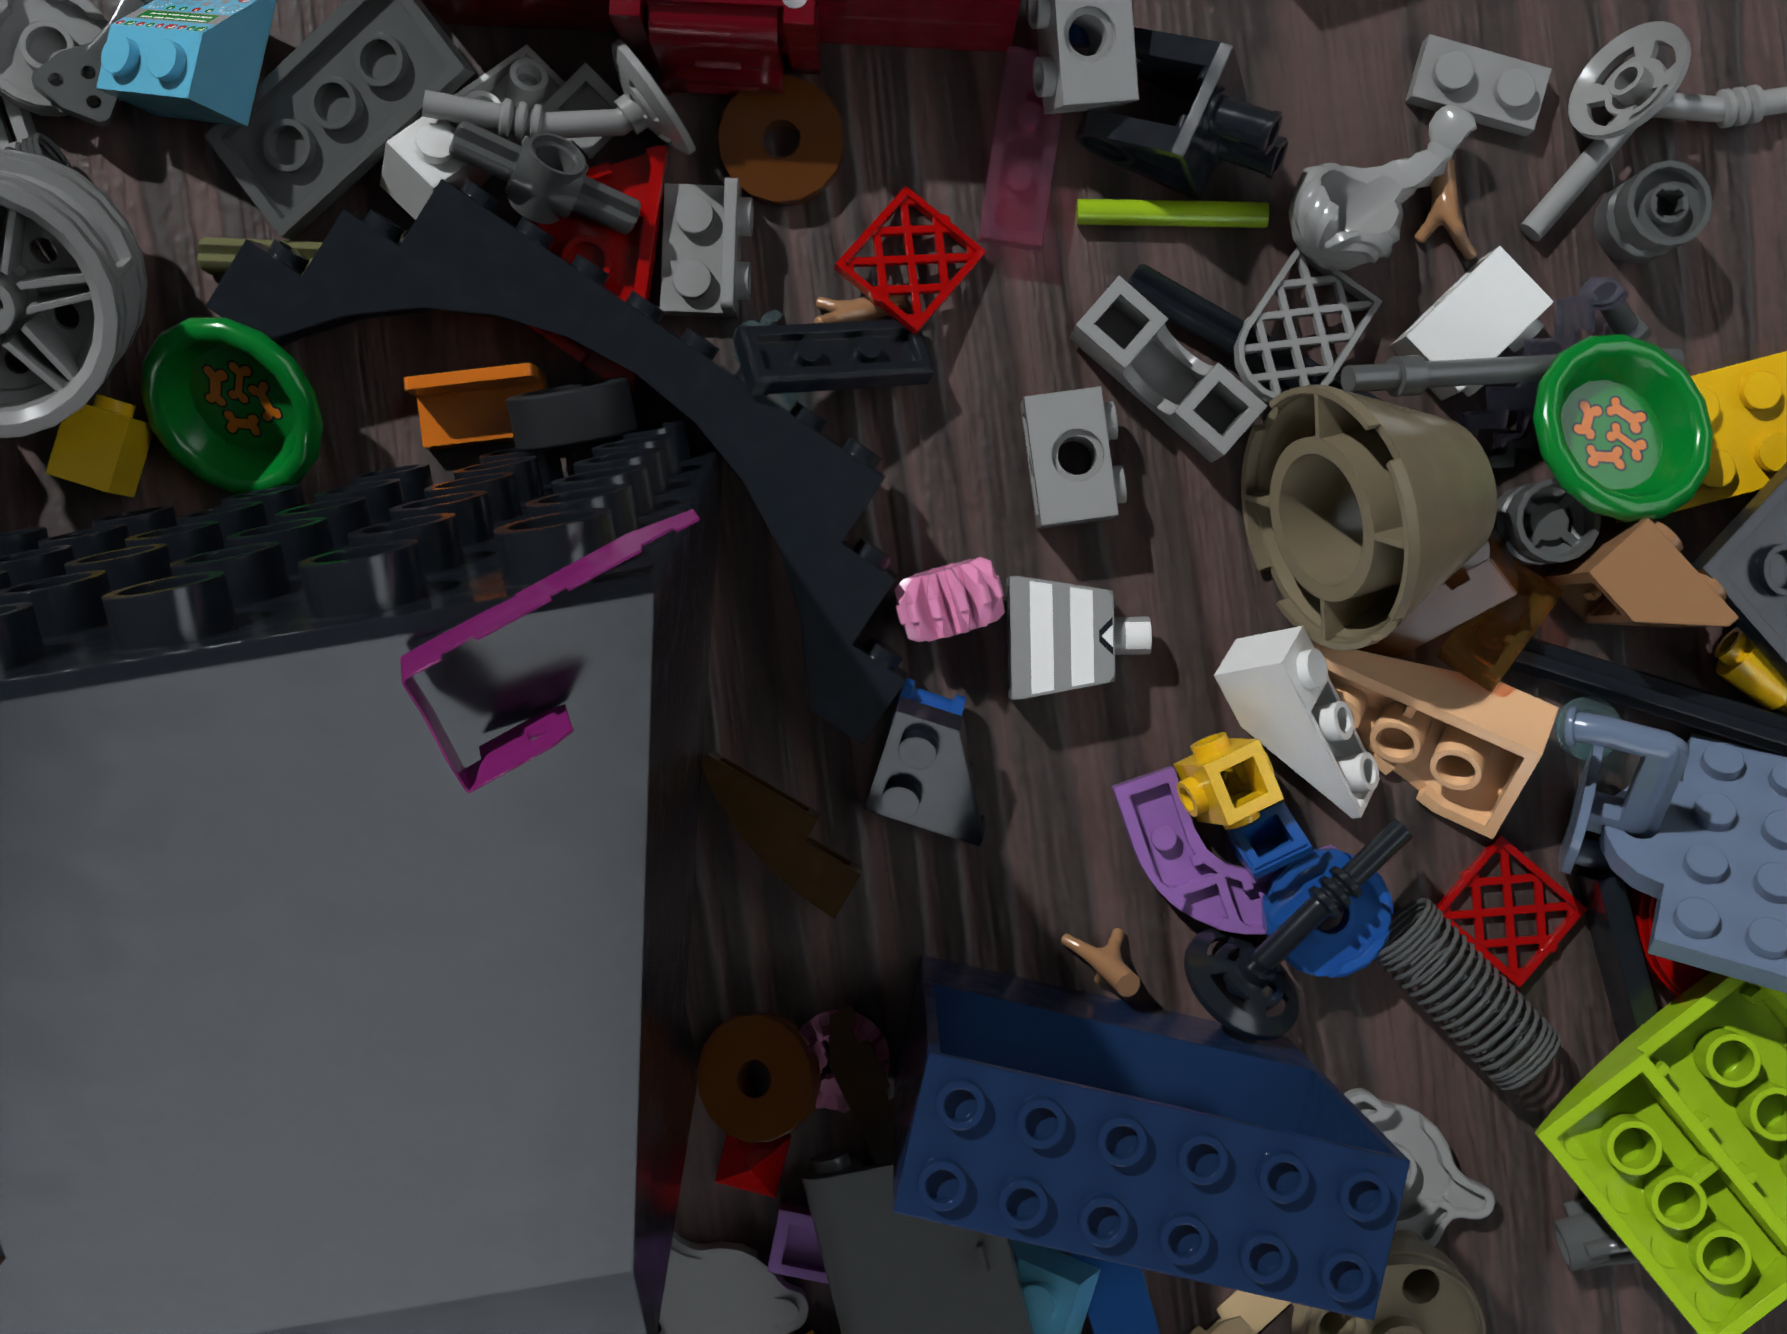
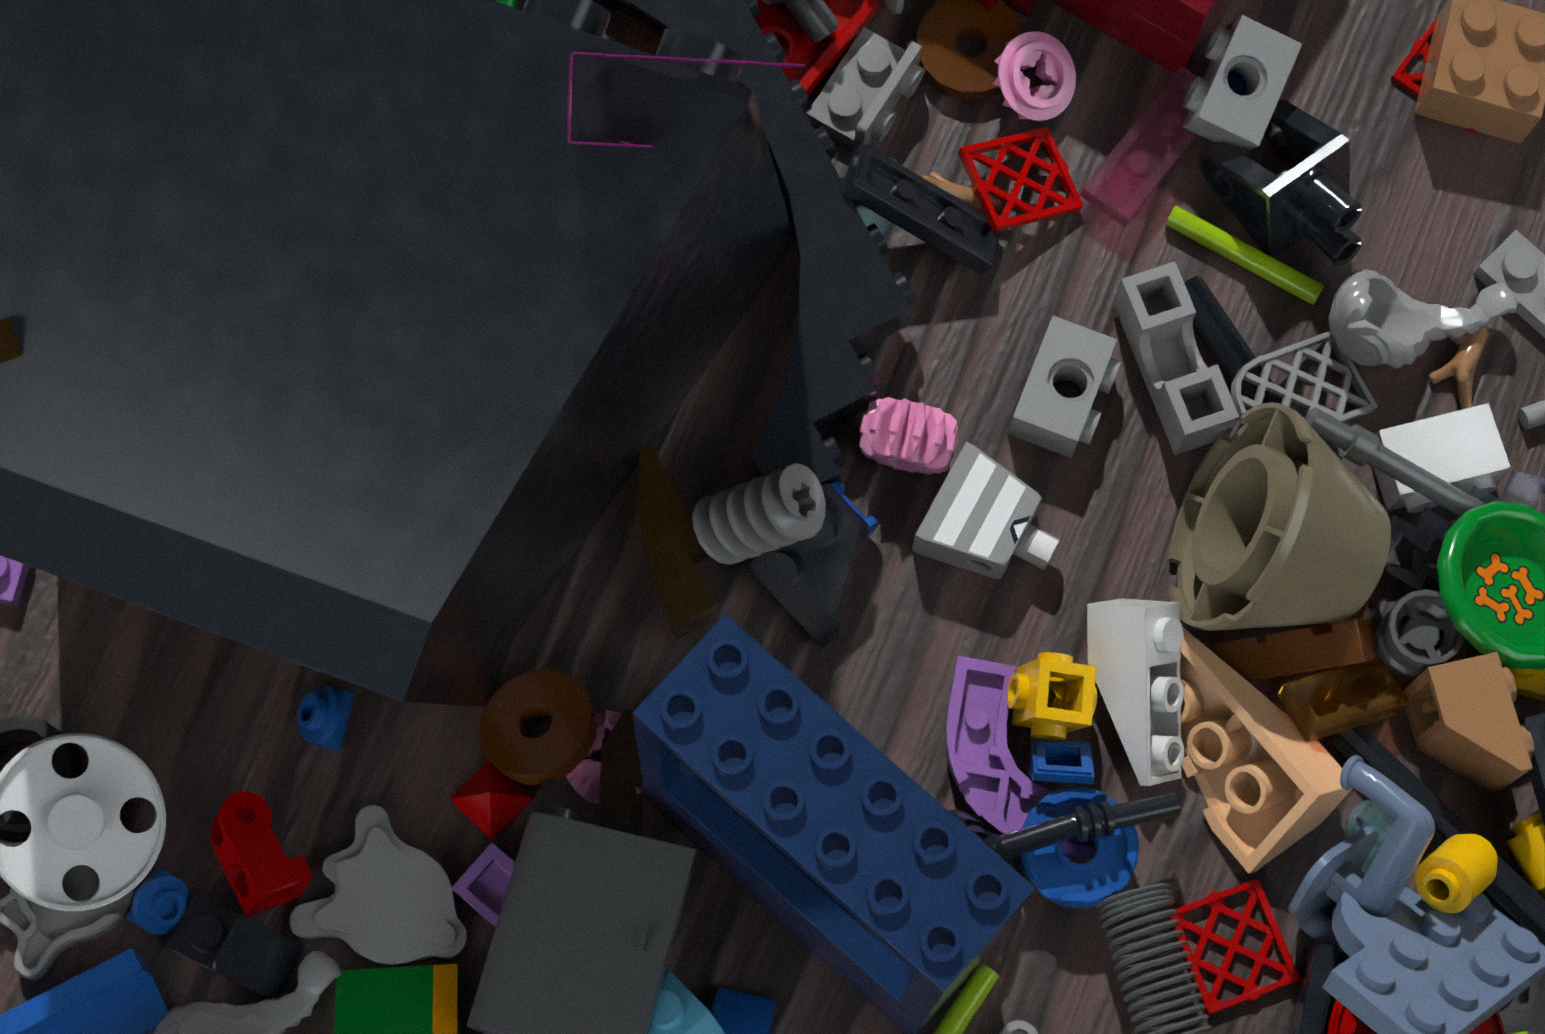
camera: 25 degrees right, 15 degrees down
(855, 773) = (760, 515): none -> light grey piece
(876, 118) = (1053, 67): none -> bright pink gear
(1713, 746) = (1457, 872): none -> yellow brick

